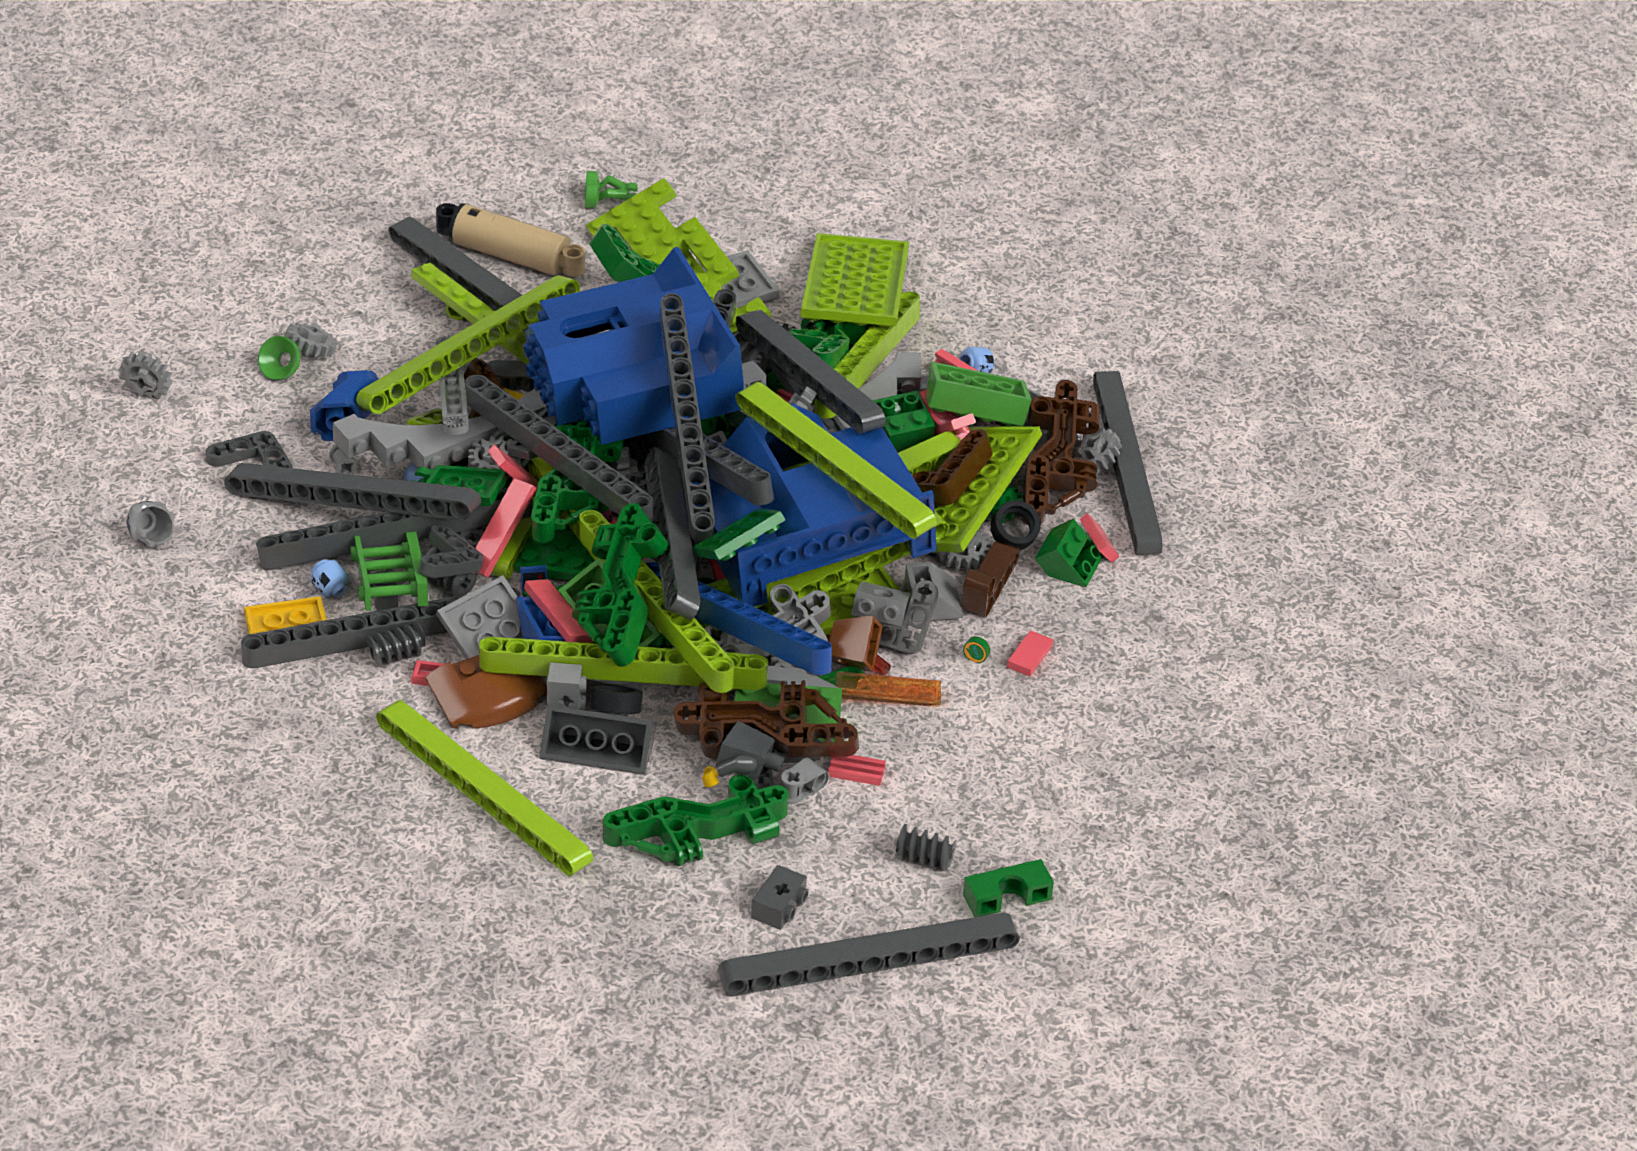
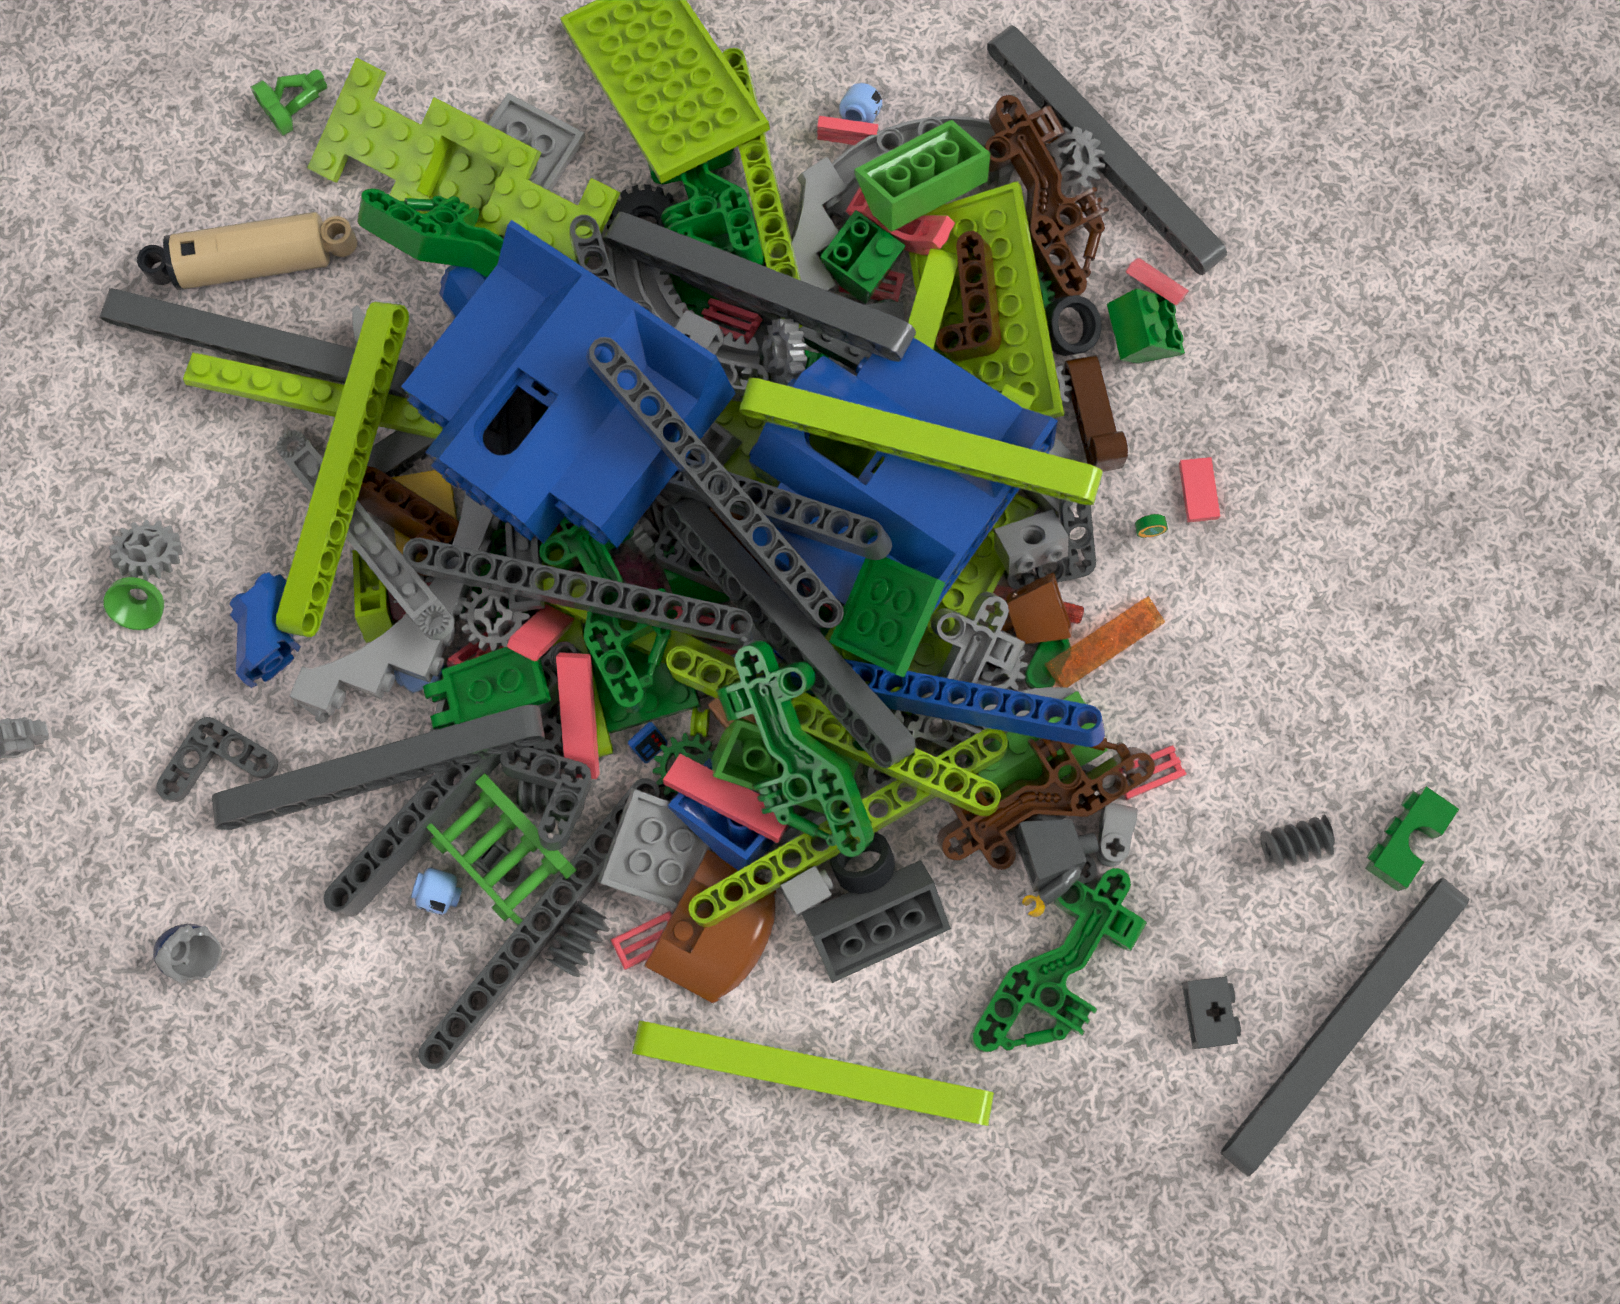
camera: 30 degrees left, 35 degrees up
(284, 614) = (432, 978): yellow tile -> none

